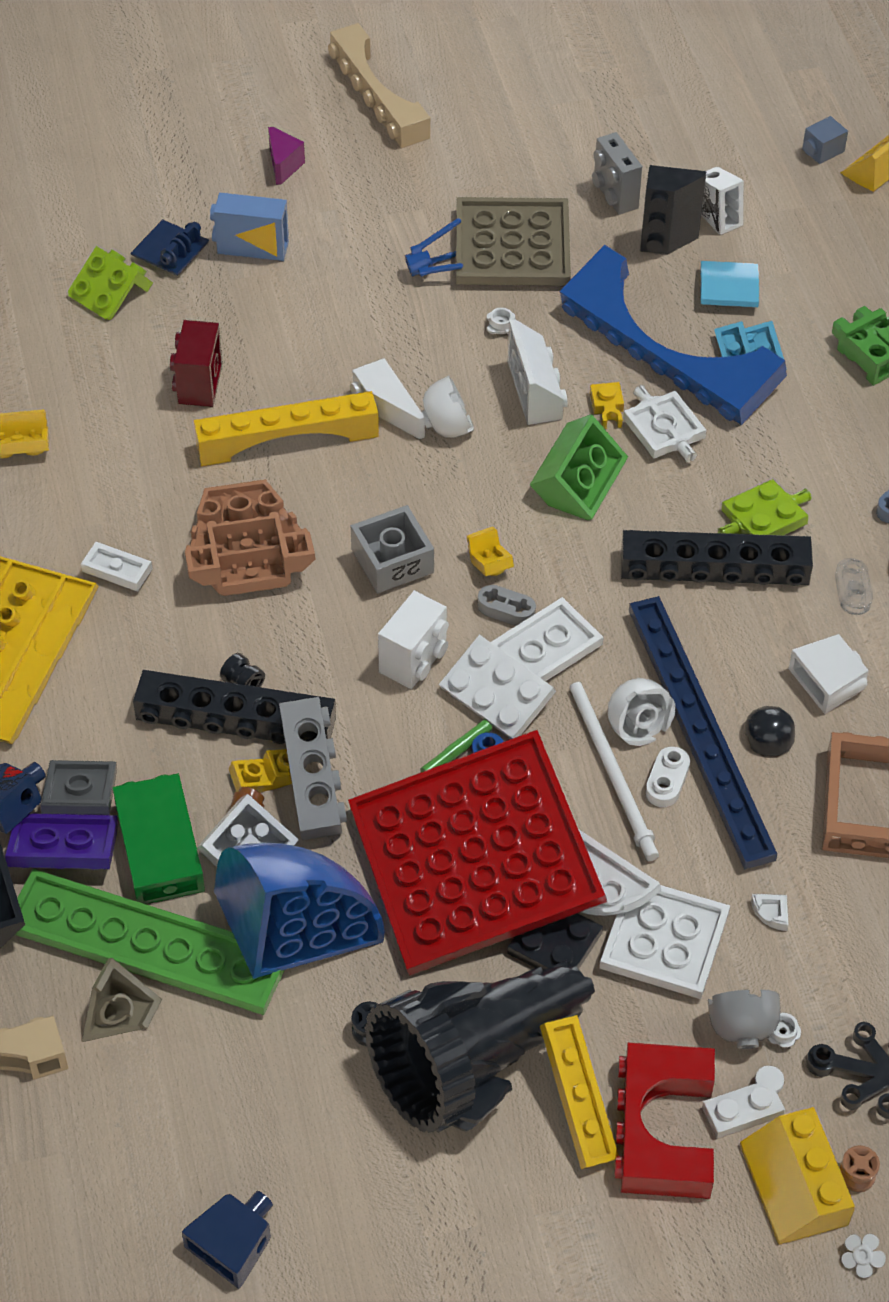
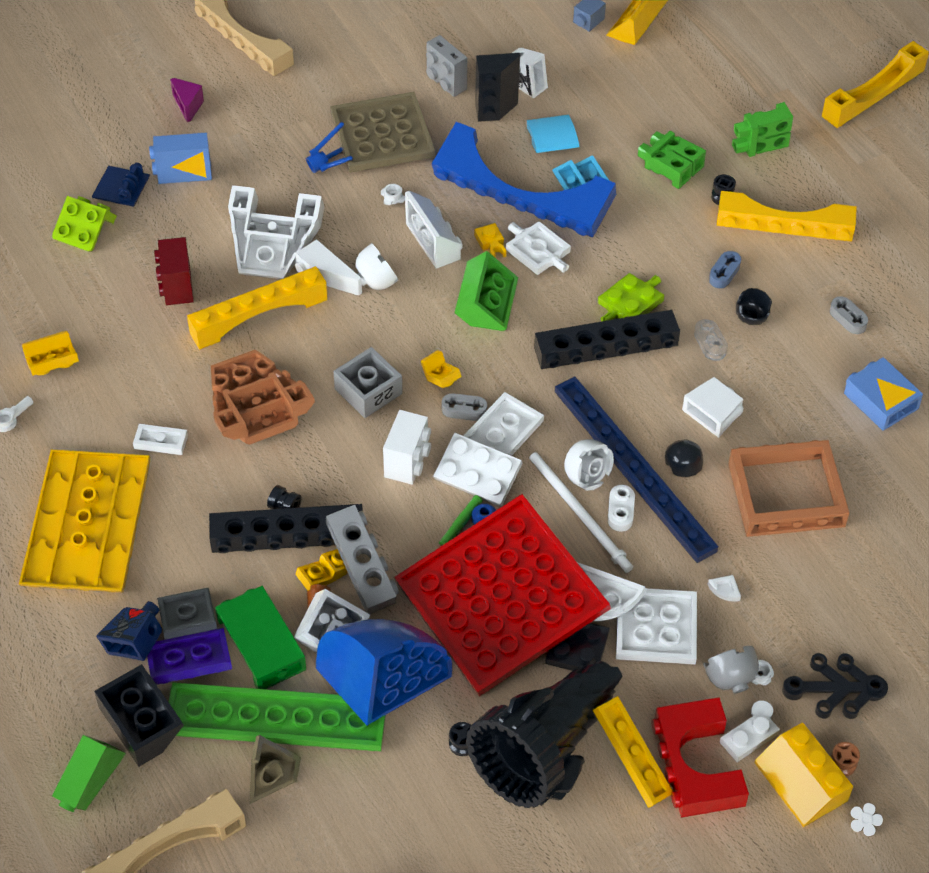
camera: 15 degrees left, 0 degrees up
(326, 348) = (266, 242): none -> white wedge

